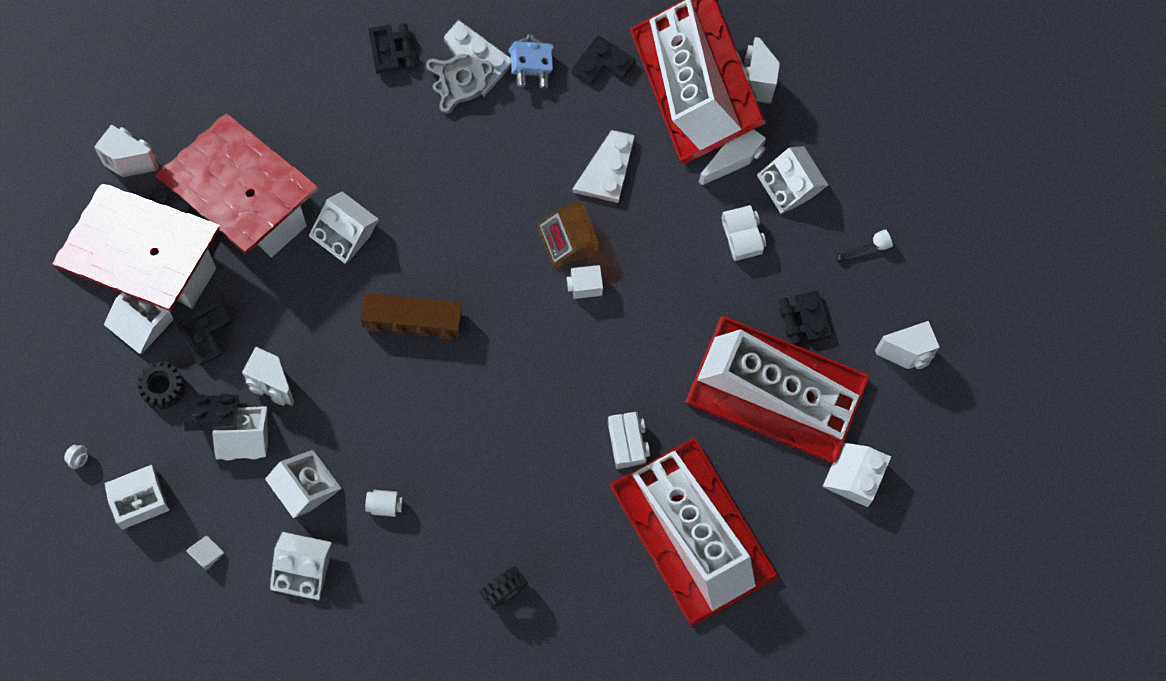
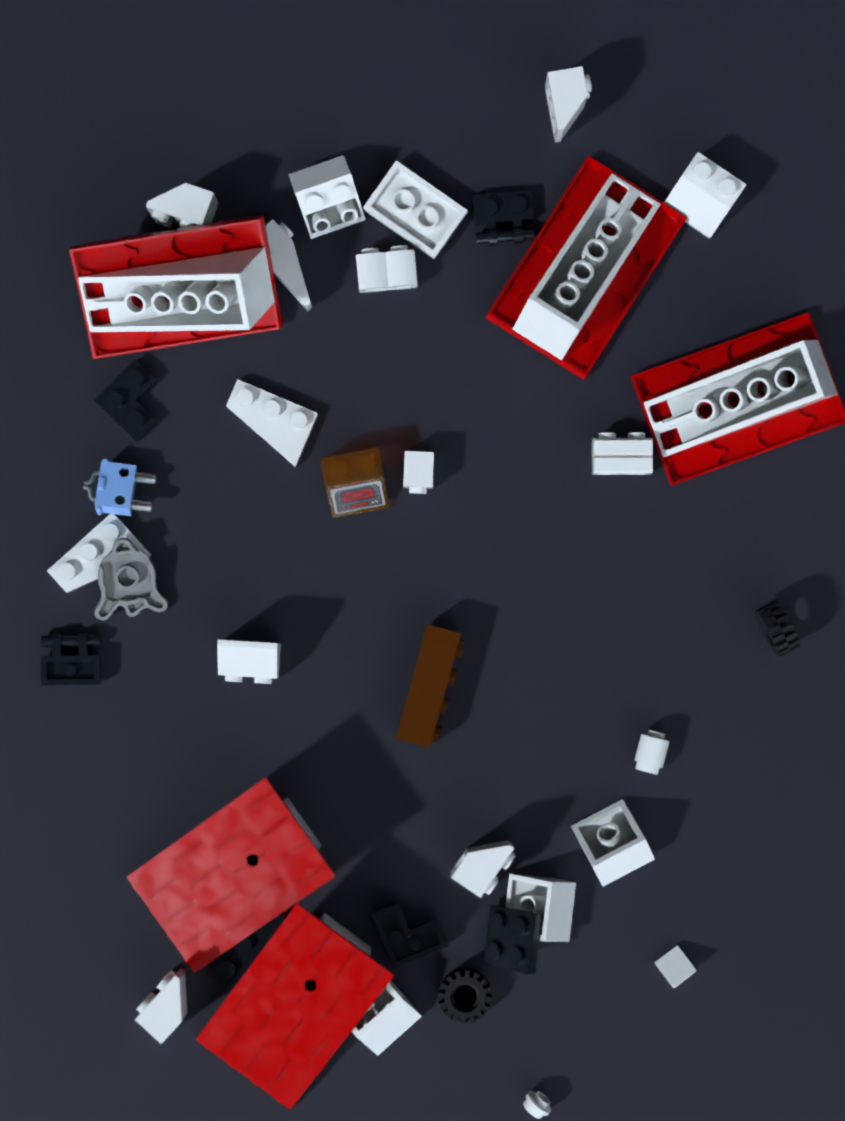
camera: 75 degrees left, 15 degrees up
(136, 497) = (597, 1040): white slope -> none
(300, 565) = (709, 858): white slope -> none
(343, 226) = (300, 752): white slope -> none
(412, 174) = (248, 659): none -> white slope
(796, 248) = (415, 209): none -> white plate
(881, 241) = (422, 106): hinge -> none

